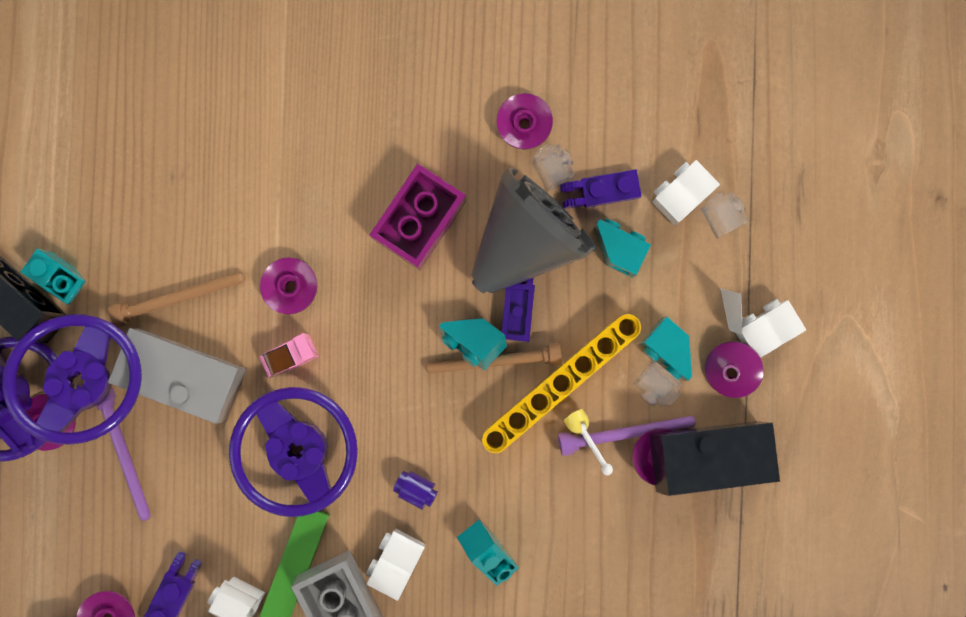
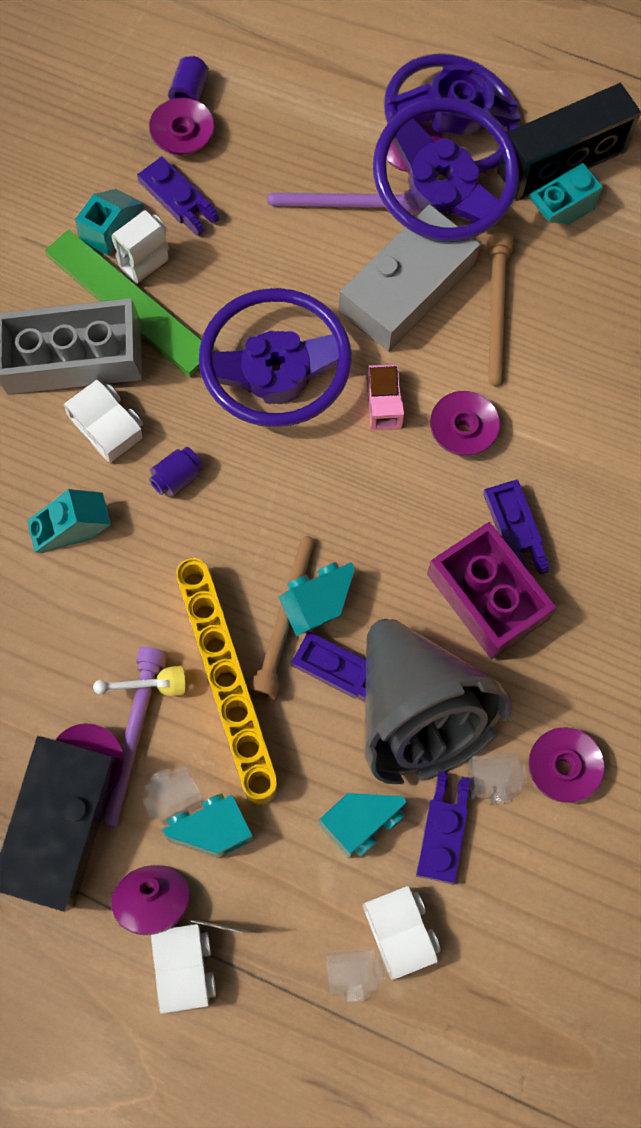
camera: 105 degrees right, 15 degrees down
(356, 219) = (516, 522): none -> dark purple hinge

